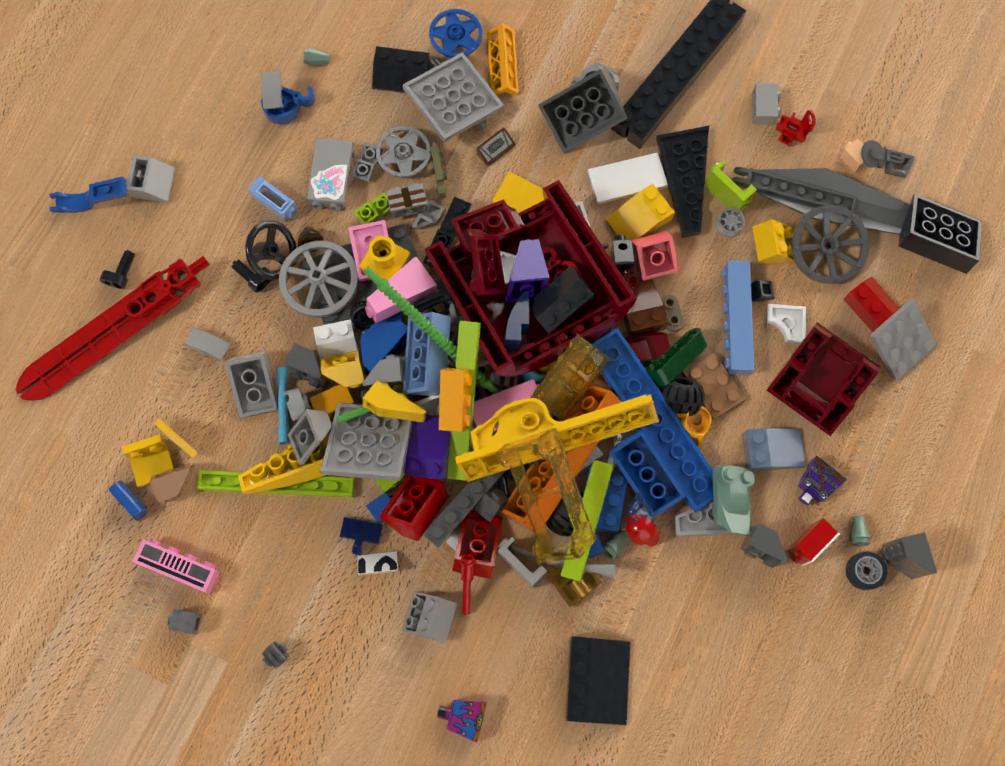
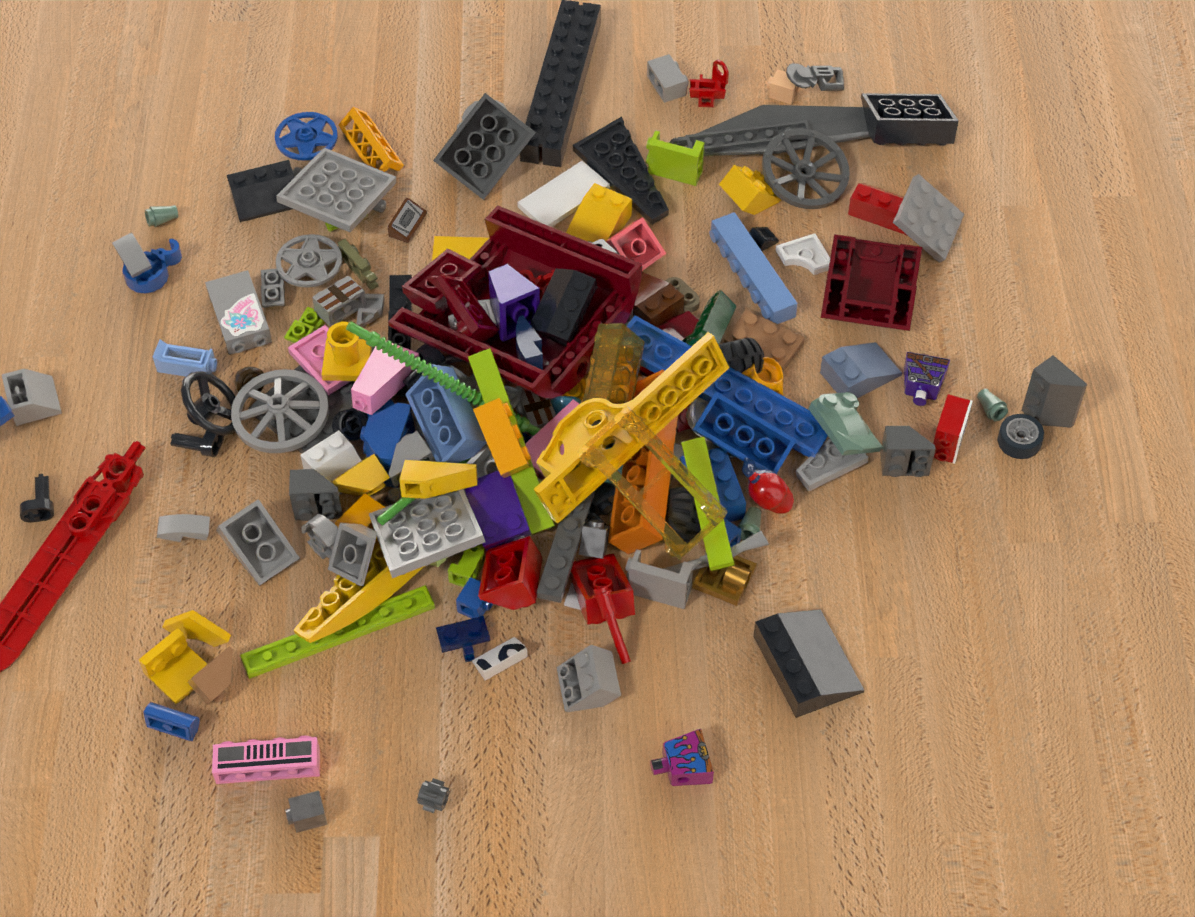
camera: 25 degrees left, 20 degrees down
(282, 383) = (316, 570): medium azure piece -> none
(730, 223) = (693, 192): light grey wheel -> none

